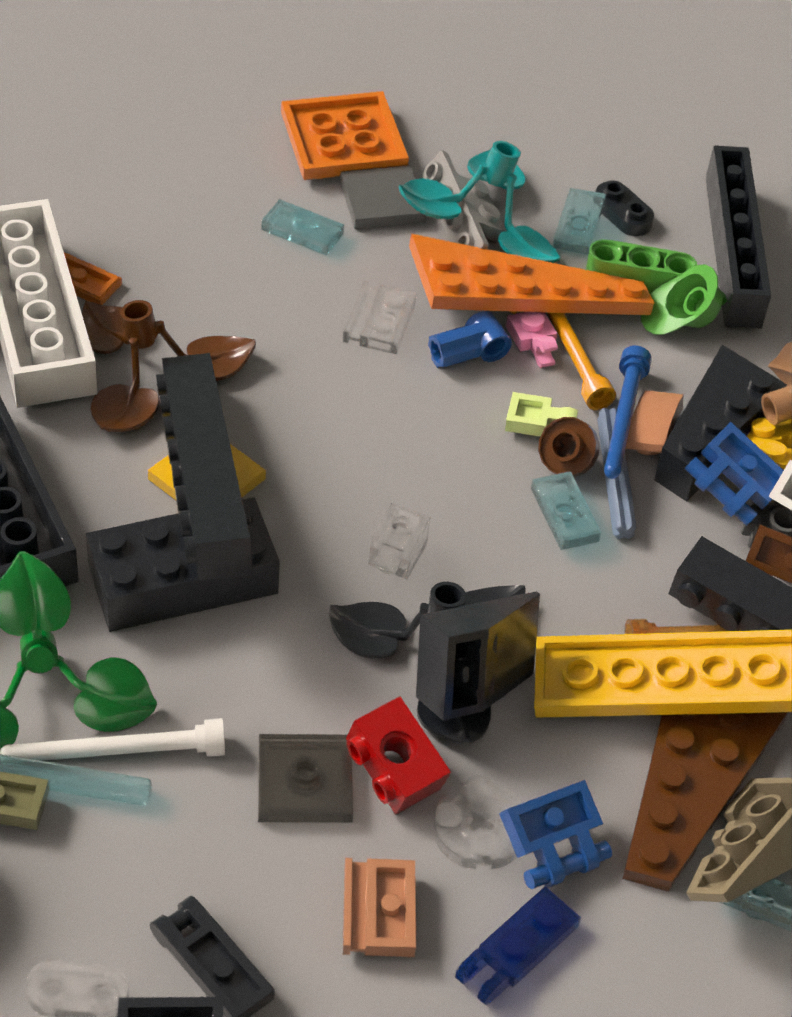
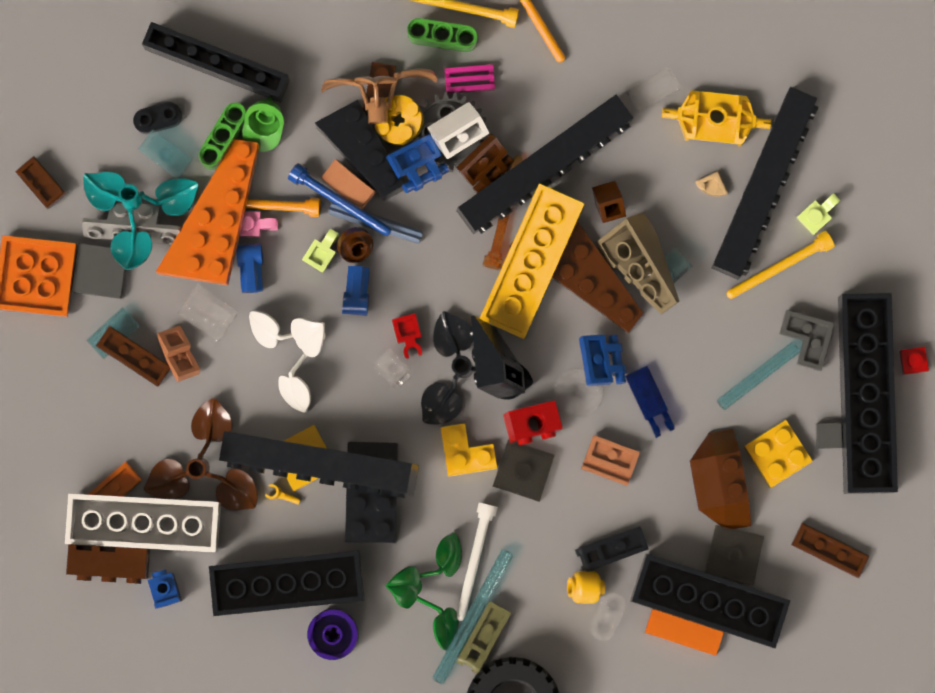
camera: 65 degrees left, 35 degrees up
(123, 931) = (585, 587): none -> yellow head
(136, 456) = (282, 495): none -> yellow hand
(278, 246) = (133, 356): none -> reddish brown tile
(293, 681) = (461, 458): none -> yellow plate
(304, 294) = (178, 354): none -> nougat slope
(395, 421) = (309, 338): none -> white plant
(466, 549) = (407, 331): none -> red plate
(471, 116) = (40, 182): none -> reddish brown plate
(488, 472) = (356, 297): none -> blue piece
(565, 510) = (396, 265): clear light blue plate -> none

